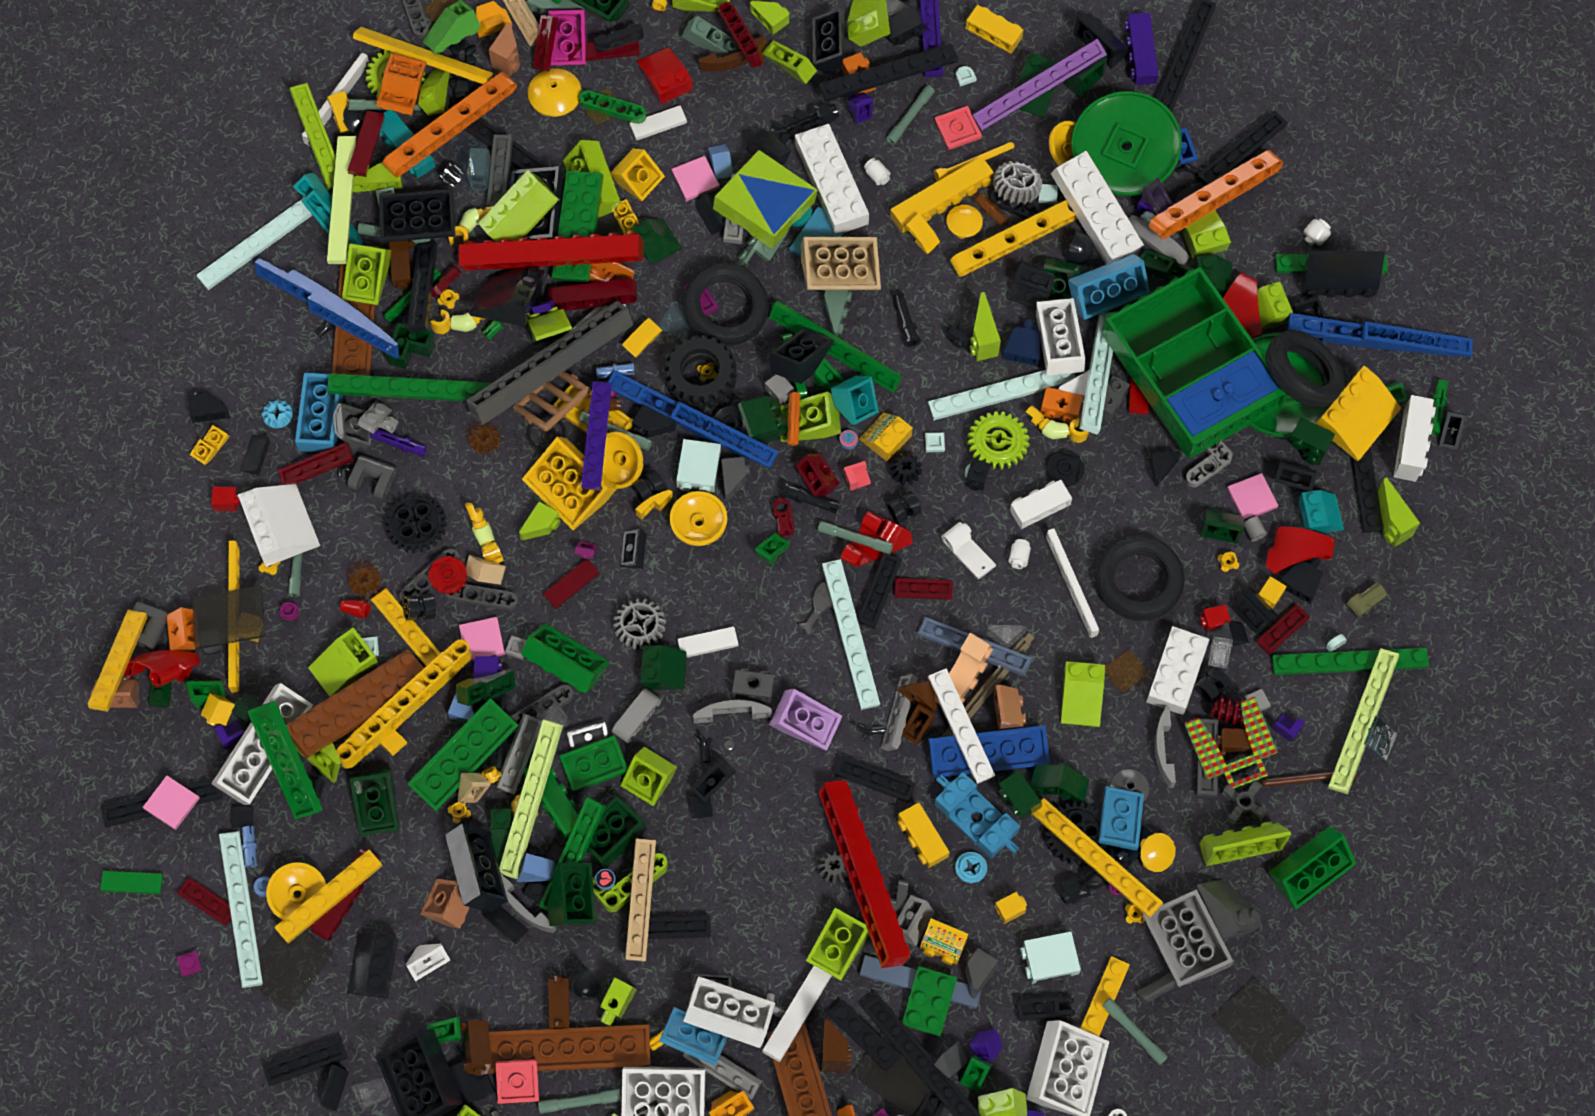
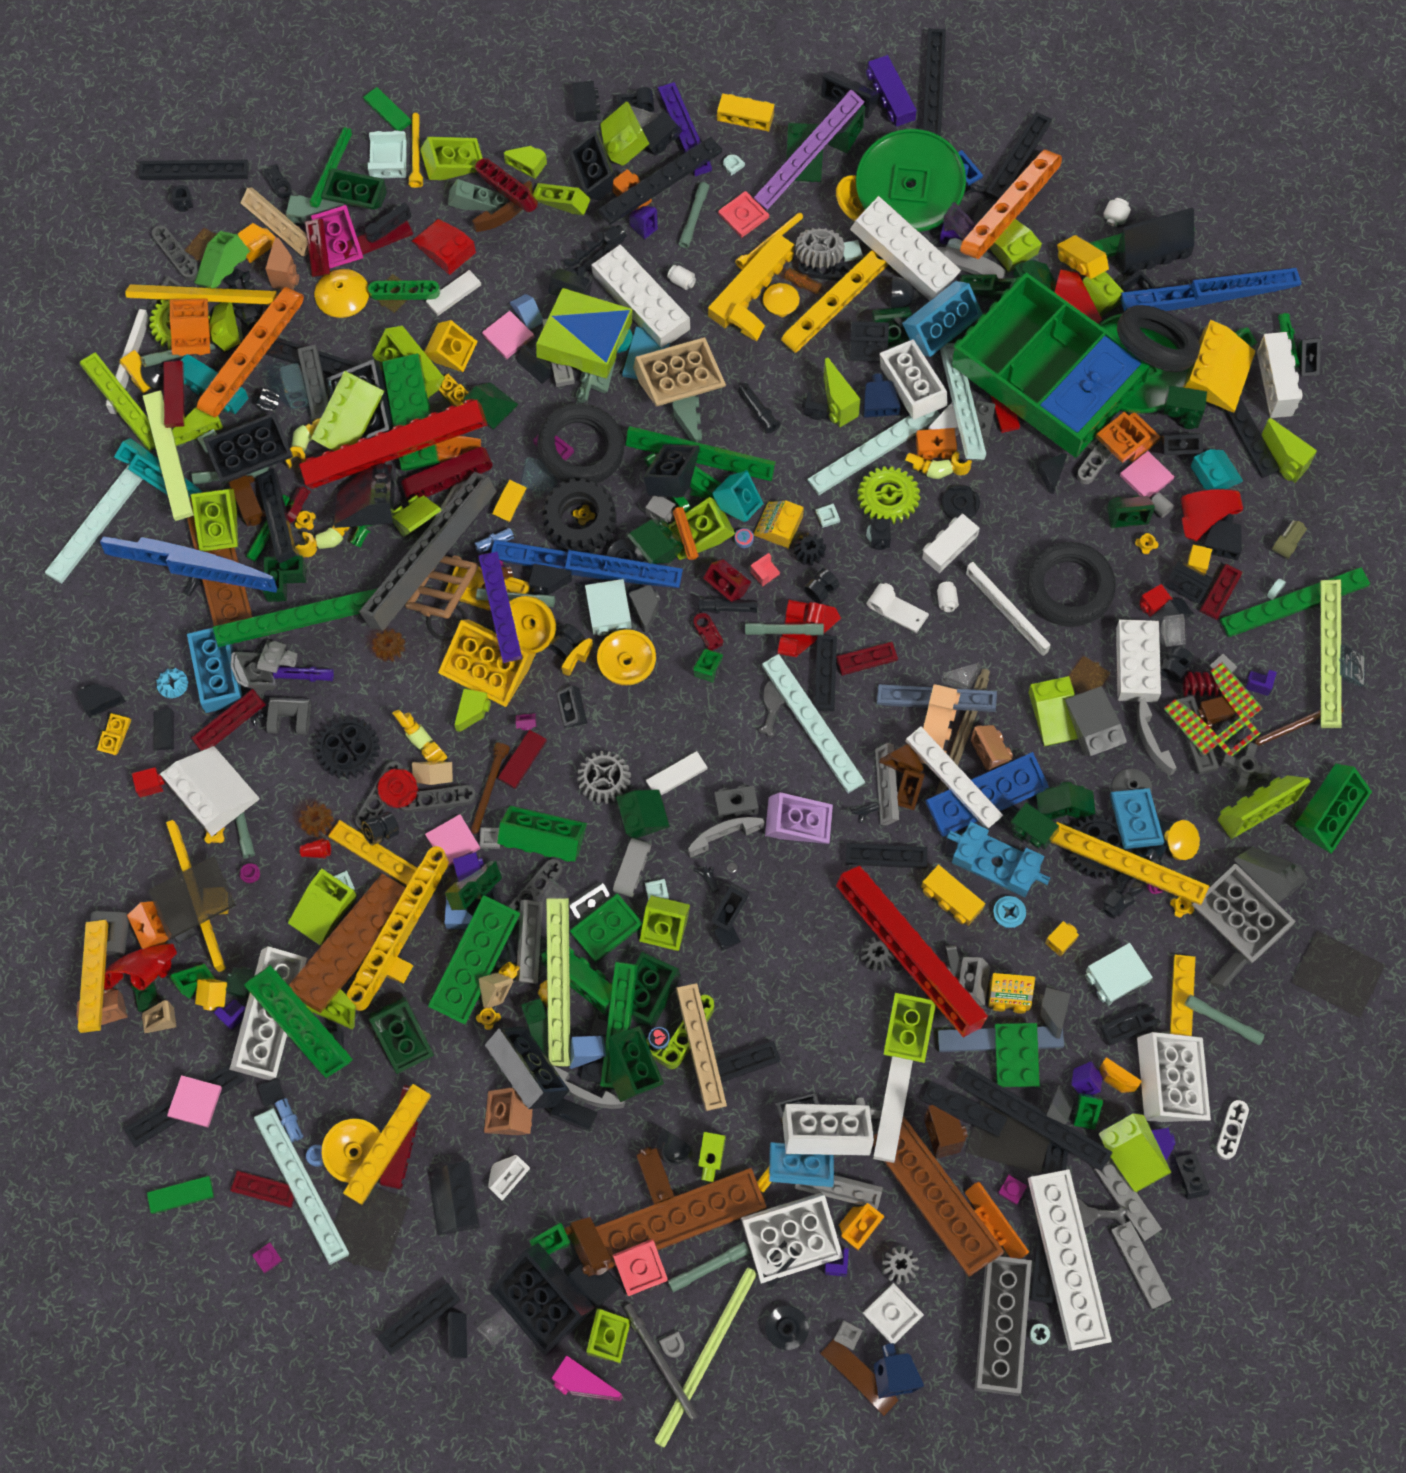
camera: 15 degrees left, 0 degrees up
(165, 717) = (159, 1017): none -> tan slope
(543, 306) = (403, 499): dark purple tile -> none
(553, 570) = (500, 751): none -> reddish brown piece
(653, 743) = (657, 888): none -> light aqua tile
(1016, 1052) = (1118, 1077): none -> light orange slope
(1114, 715) = (1095, 721): none -> dark grey slope
(1246, 454) = (1128, 437): none -> orange bracket
(1265, 267) = (1082, 257): none -> yellow brick

